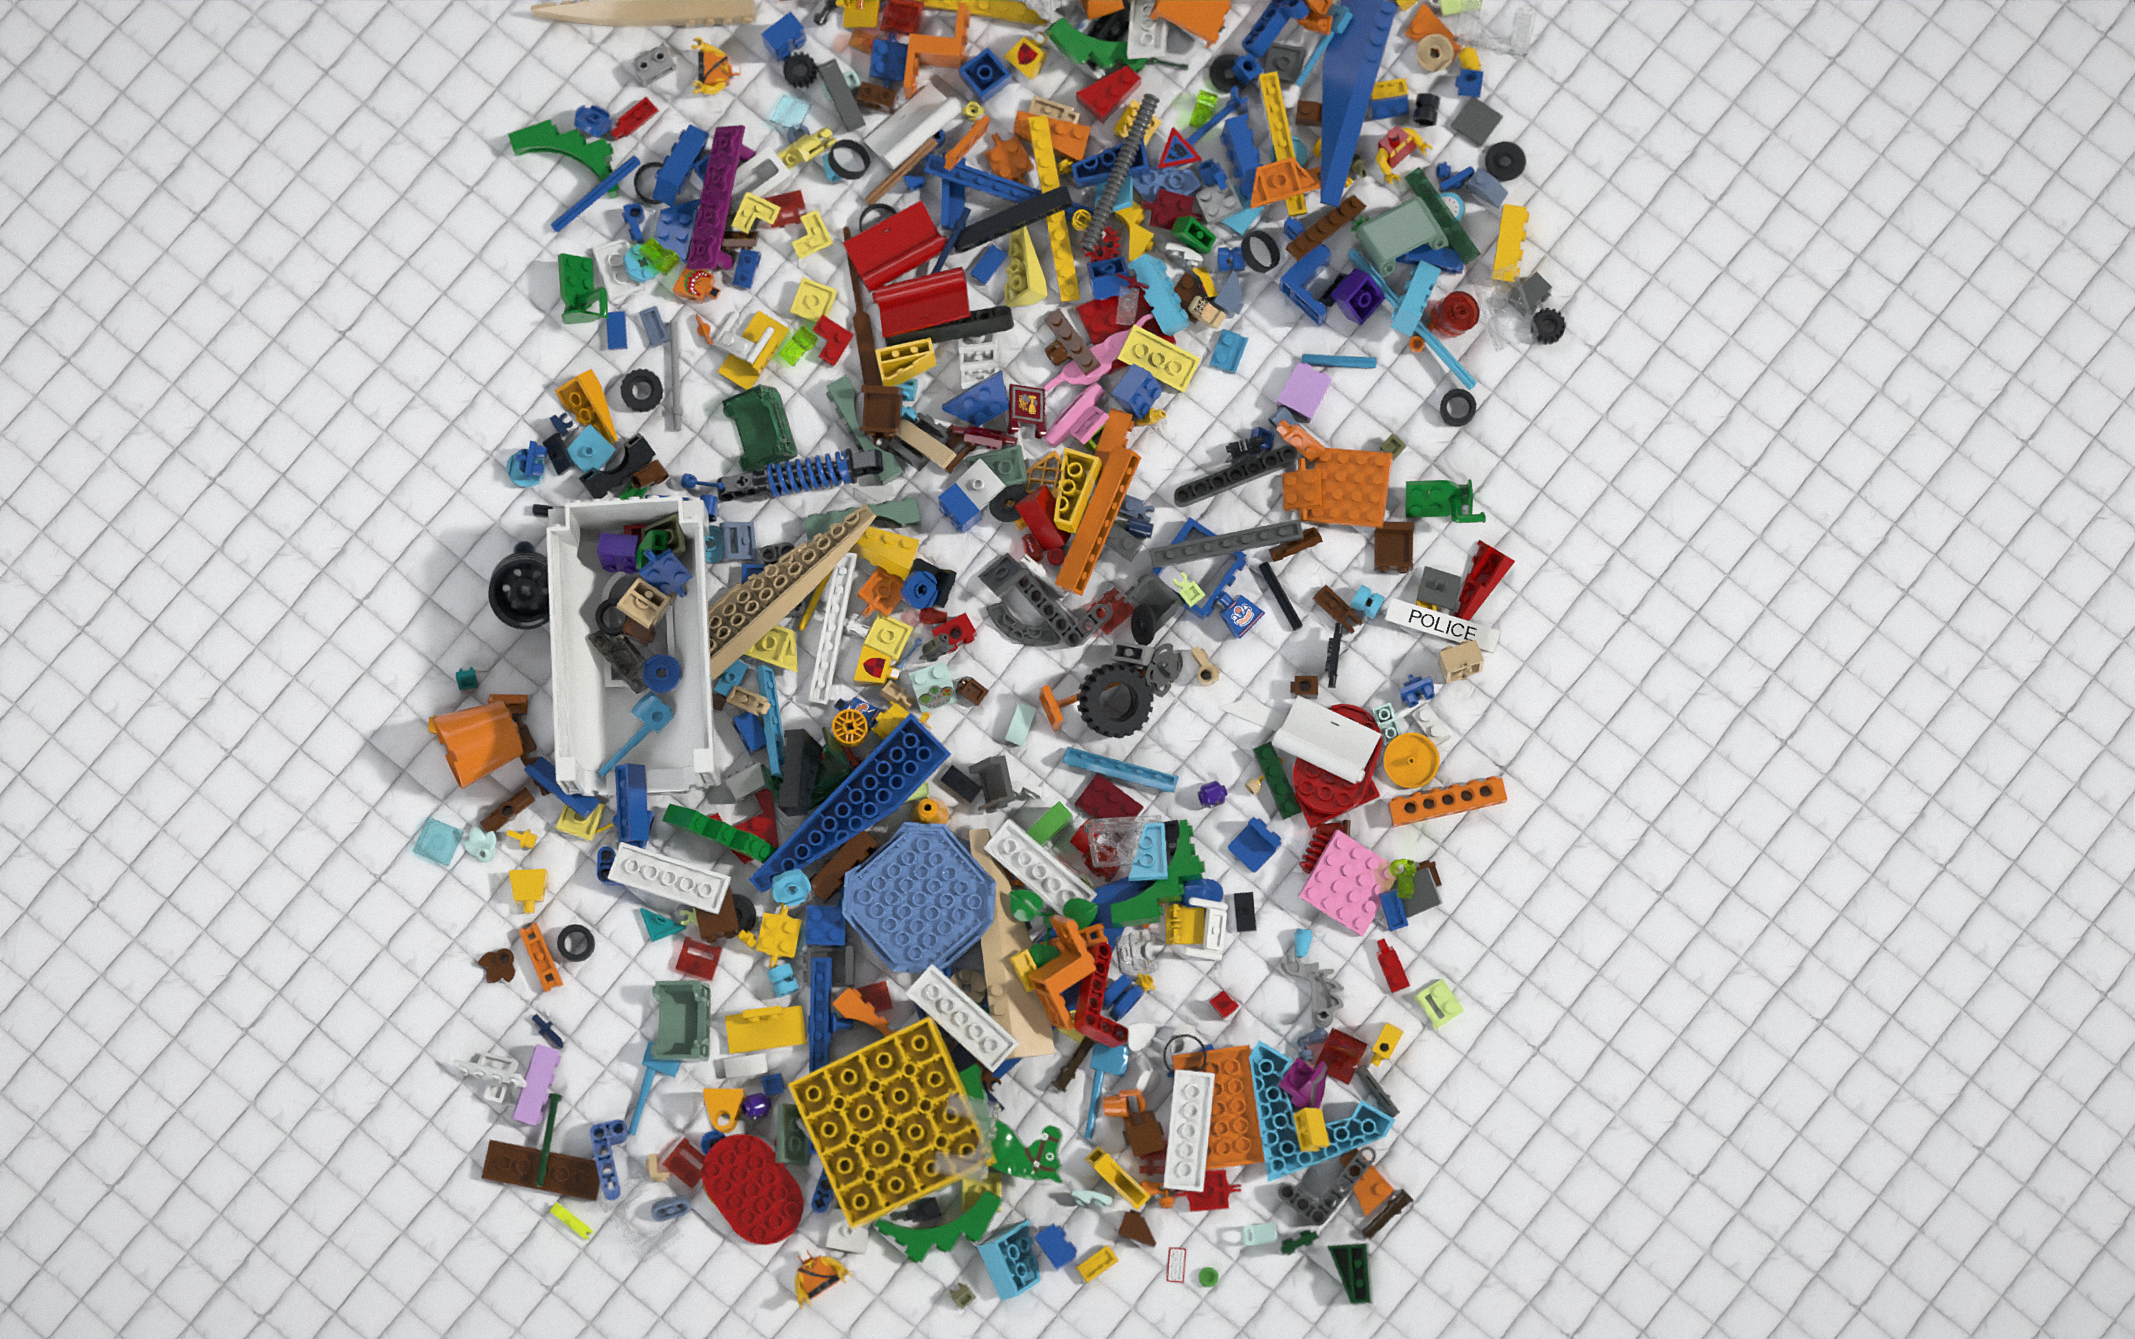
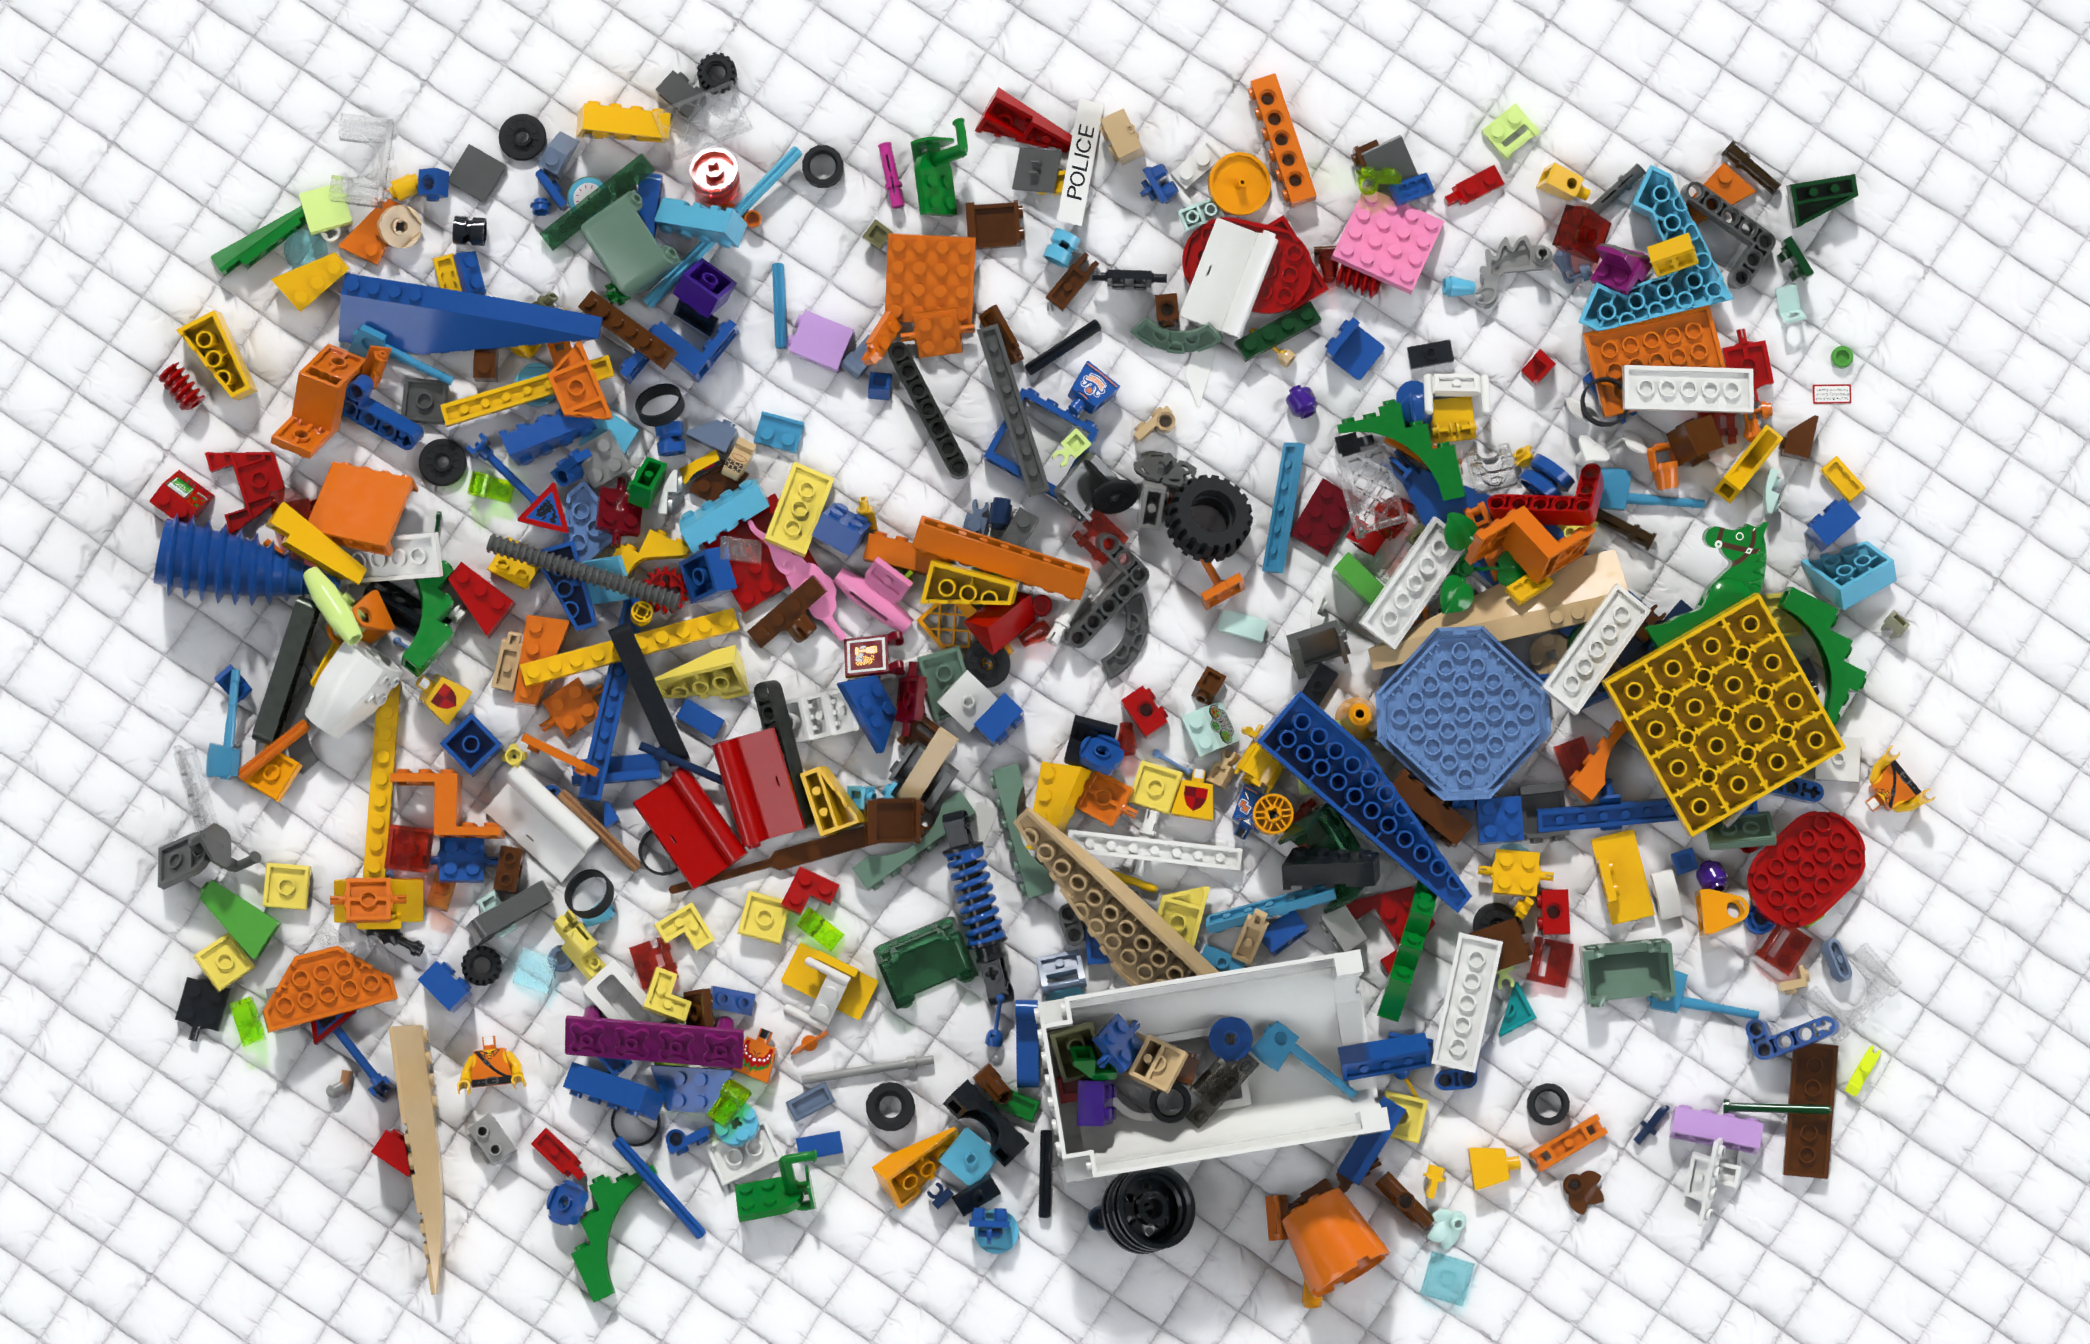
camera: 95 degrees left, 5 degrees up
(466, 679) = (1255, 1268): teal tile -> none
(750, 972) = (1560, 900): none -> red brick
(783, 980) = (1566, 862): medium azure wheel -> none
(790, 878) = (1454, 857): medium azure plate -> none
(936, 648) = (1166, 733): dark grey hinge -> none
(974, 1164) = (1769, 616): clear arch -> none
(1002, 574) = (1071, 663): dark grey tile -> none
(1064, 167) = (575, 640): yellow plate -> none
(1132, 281) = (715, 543): dark red piece -> none
(1150, 858) = (1383, 459): medium azure wing -> none
(1238, 455) = (902, 390): black hinge -> none
(1243, 75) = (442, 432): blue brick -> none
(1276, 692) = (1176, 341): none -> sand green tile
(1395, 147) = (520, 261): torso -> none
(1445, 464) = (895, 199): none -> dark pink pin

